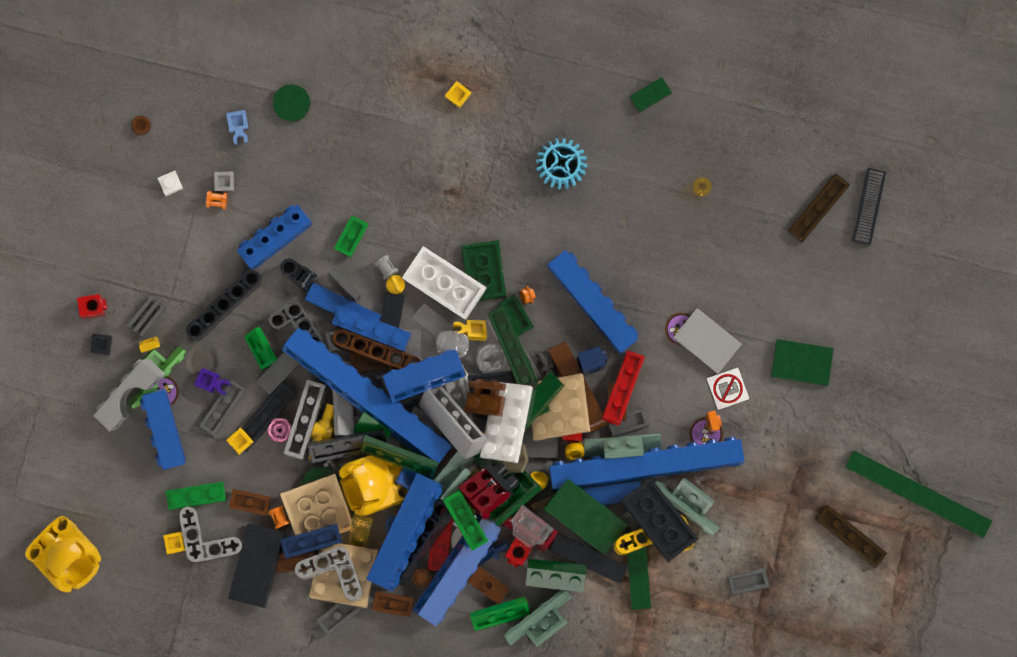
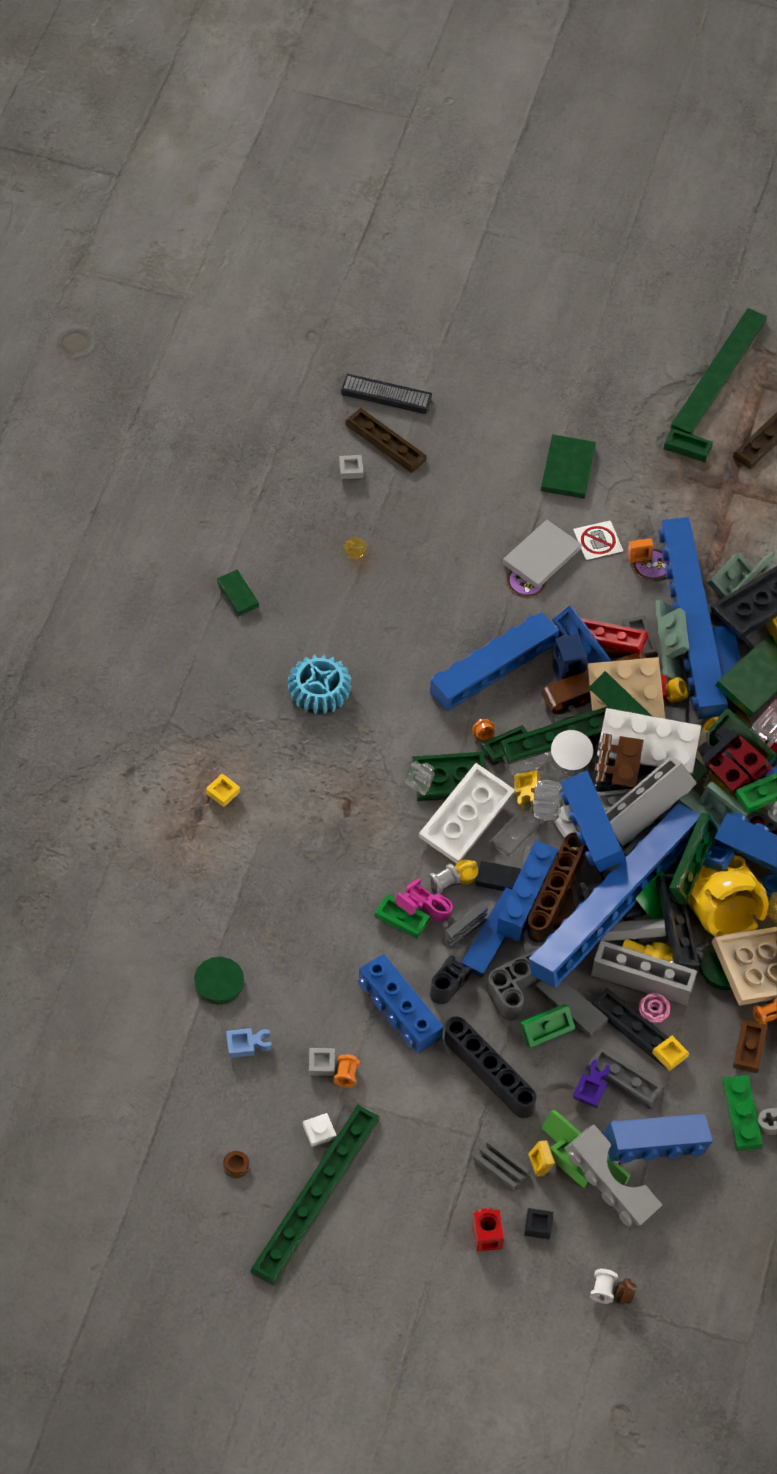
camera: 90 degrees left, 25 degrees down
(46, 406) = (625, 1291): none -> reddish brown plate
(50, 390) = (604, 1286): none -> white bush
(120, 183) = (315, 1195): none -> dark green tile
(368, 249) = (417, 896): none -> dark pink piece
(472, 245) = (420, 777): none -> clear tile
(500, 362) = (572, 750): none -> white sticker
(614, 372) = (570, 624): none -> blue tile
(784, 179) = (351, 467): none -> light grey plate
(834, 465) = (688, 445): none -> dark green tile

